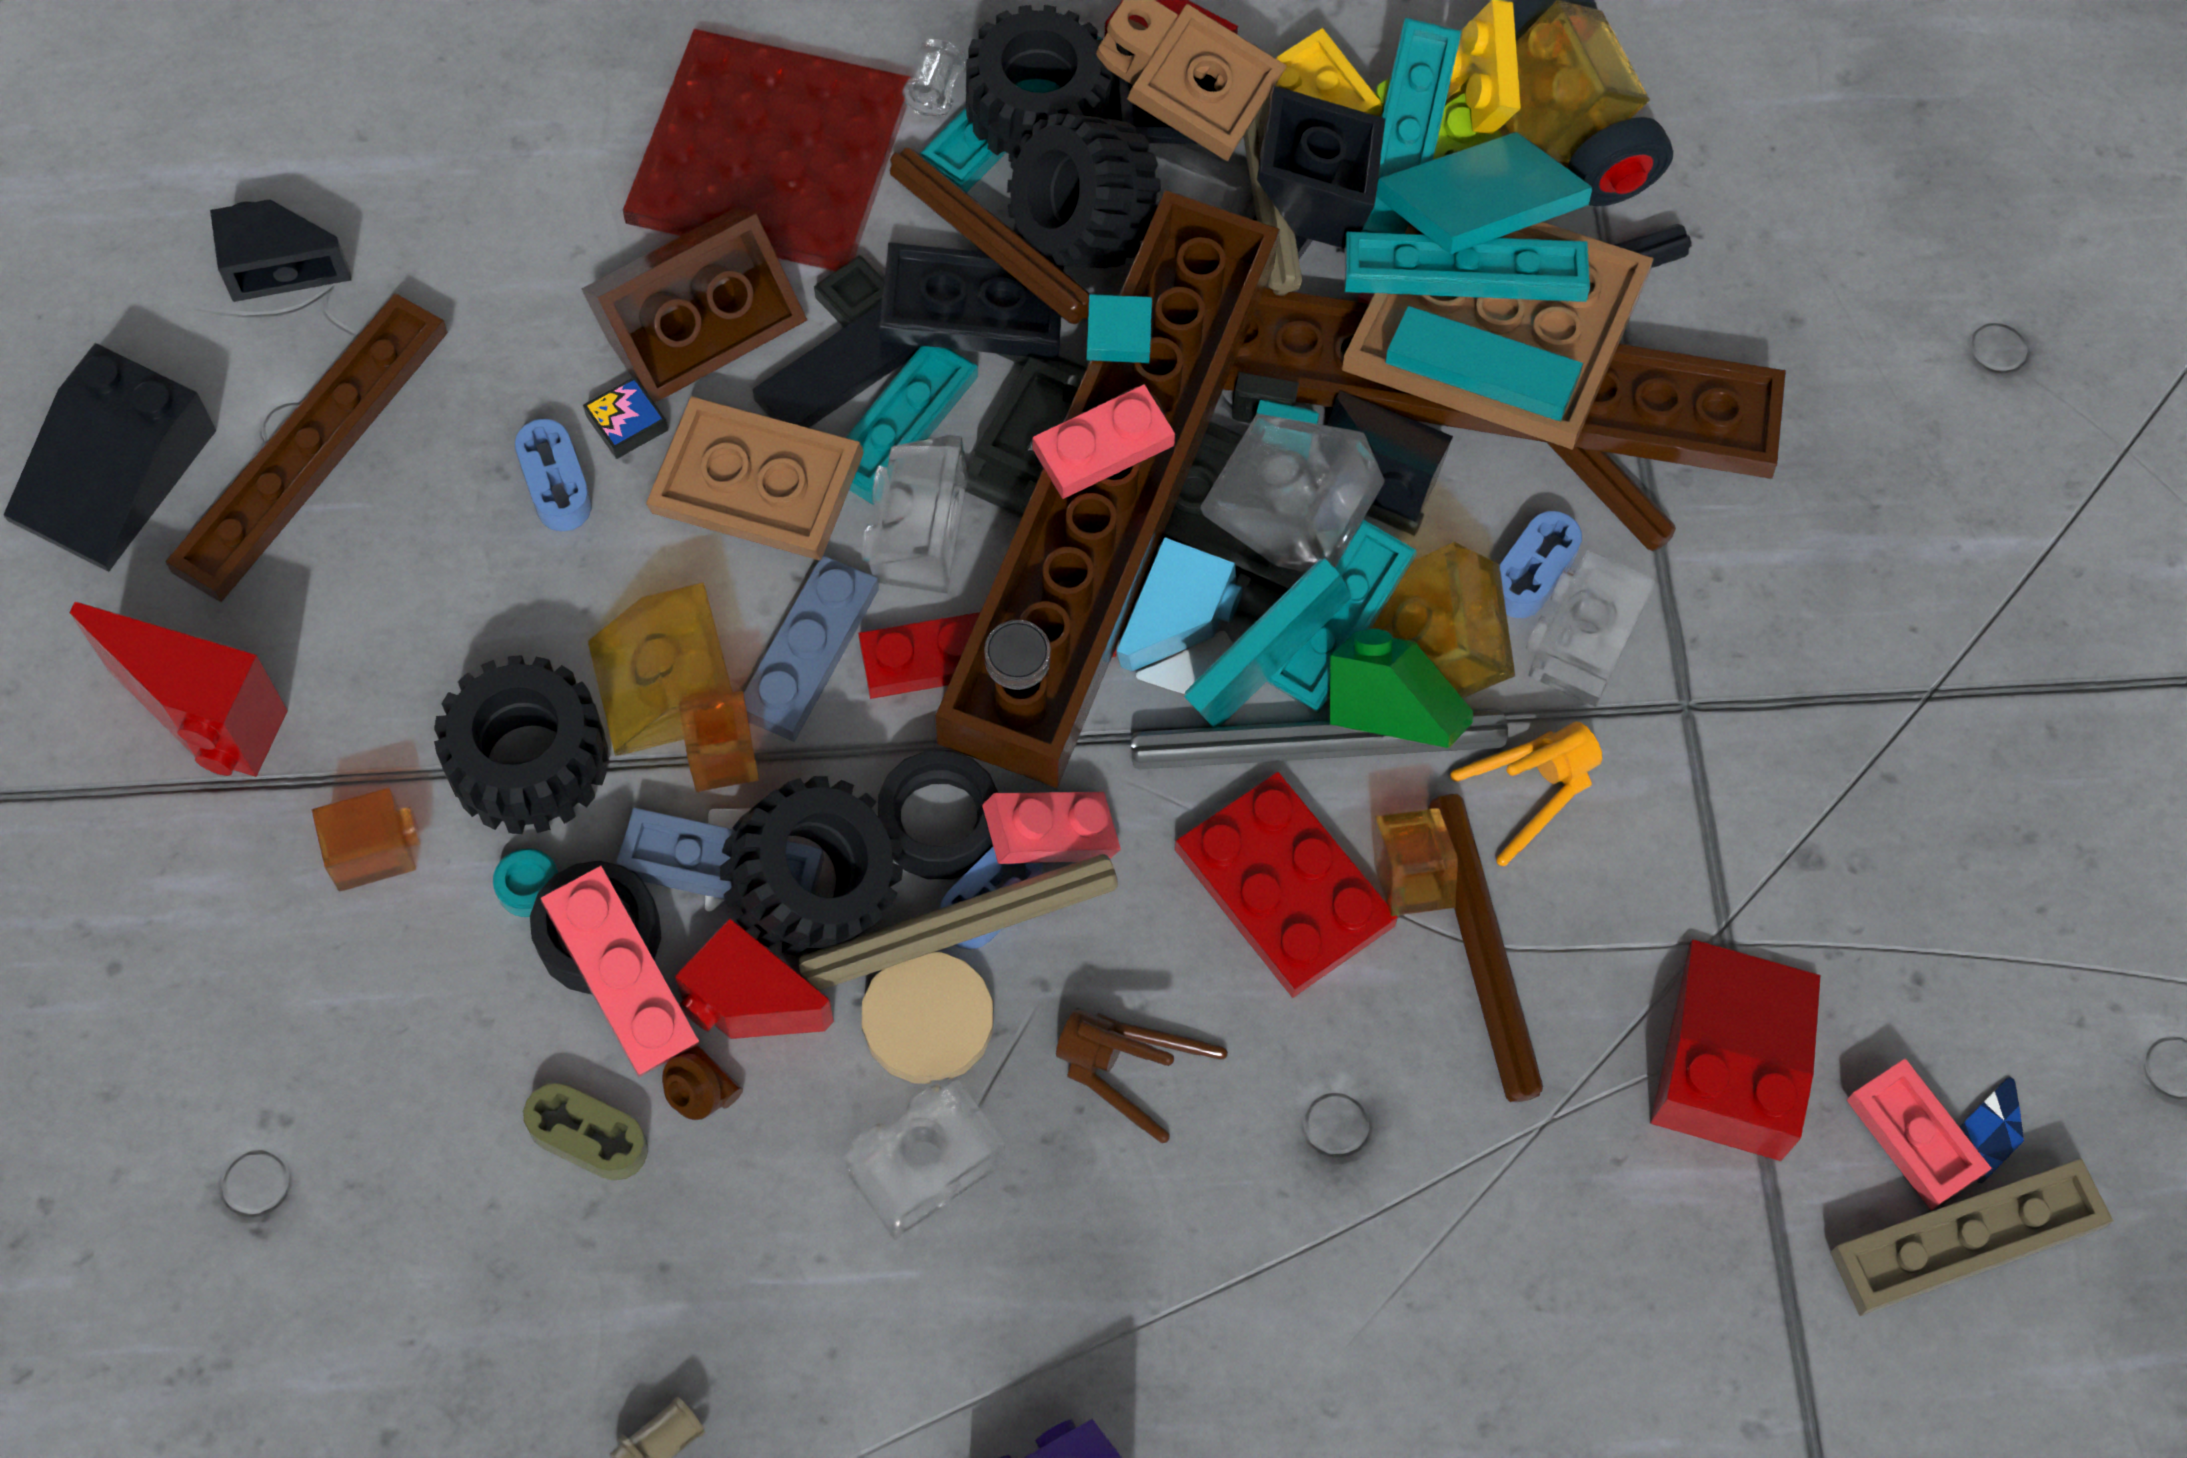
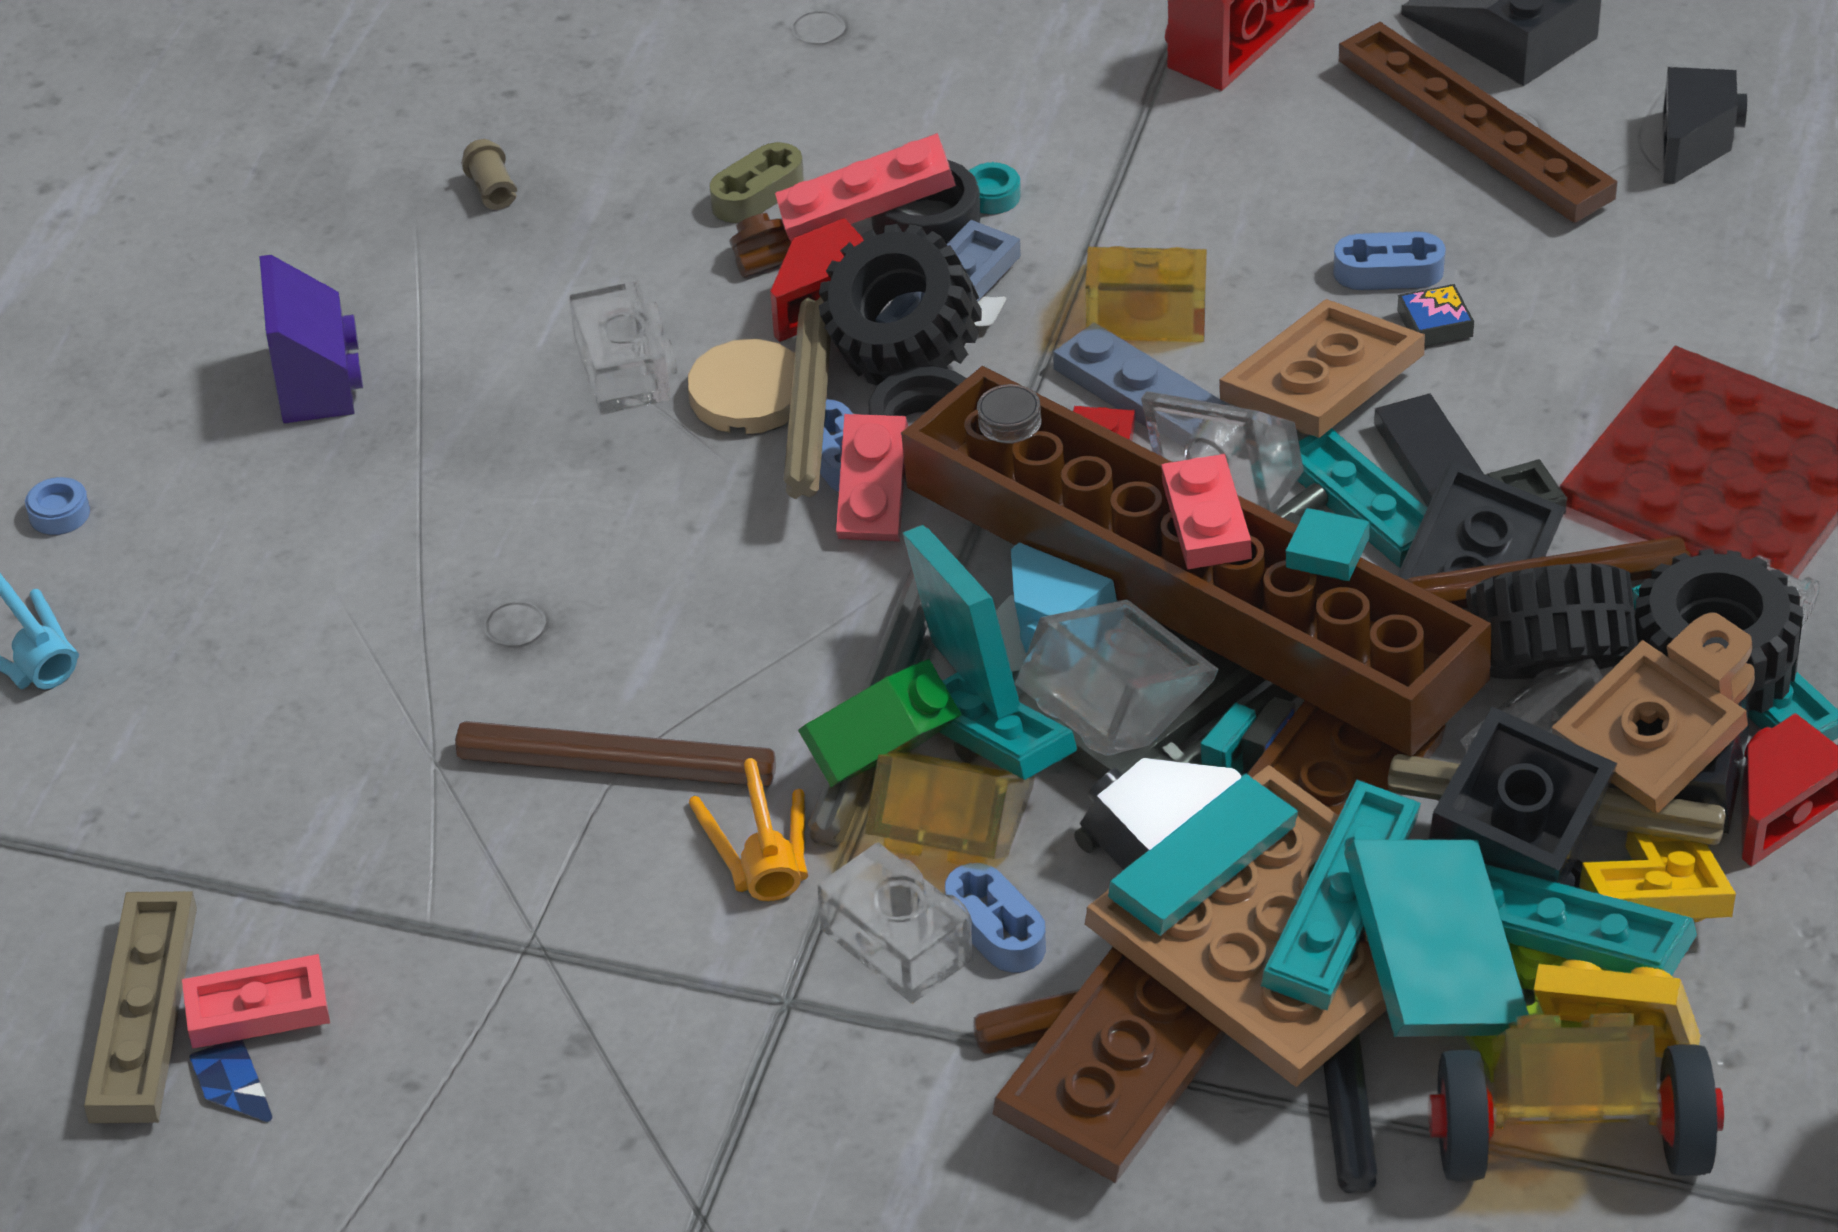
camera: 115 degrees right, 20 degrees down
(366, 839) = (1067, 95): clear orange brick -> none
(513, 699) = (1108, 181): black tyre -> none
(695, 303) = (1541, 365): reddish brown slope -> none
(718, 741) = (1052, 287): clear orange brick -> none
(1096, 1043) = (662, 468): reddish brown plant -> none
(1285, 884) = (749, 639): red plate -> none
(1415, 862) = (712, 701): clear orange brick -> none
(1740, 1052) = (410, 893): red slope -> none

